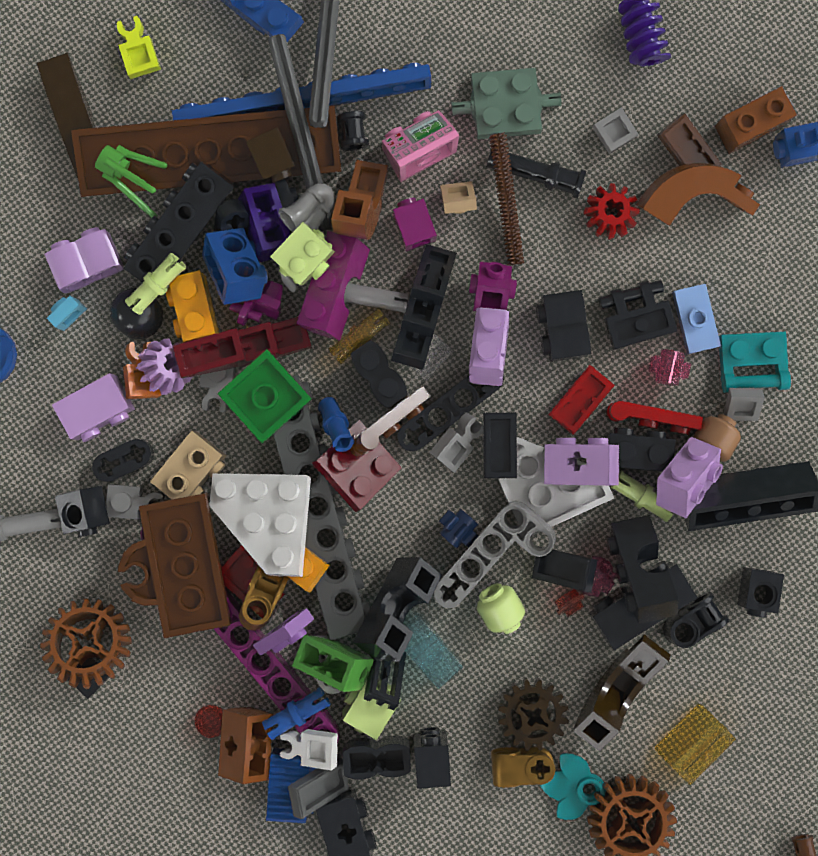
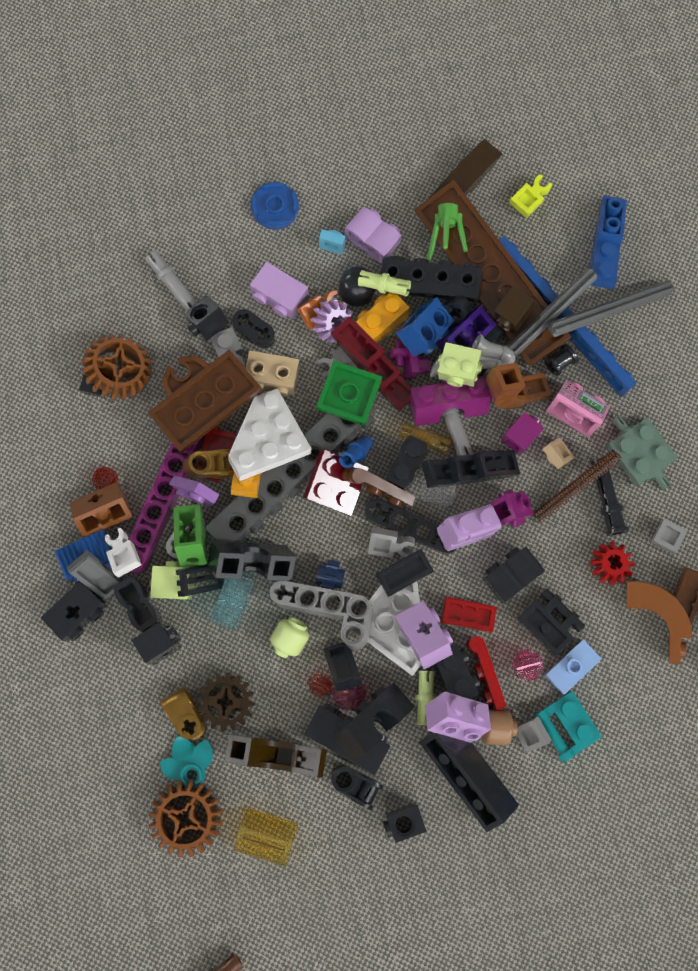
camera: 60 degrees right, 10 degrees down
(296, 713) = (141, 530): blue pin -> none

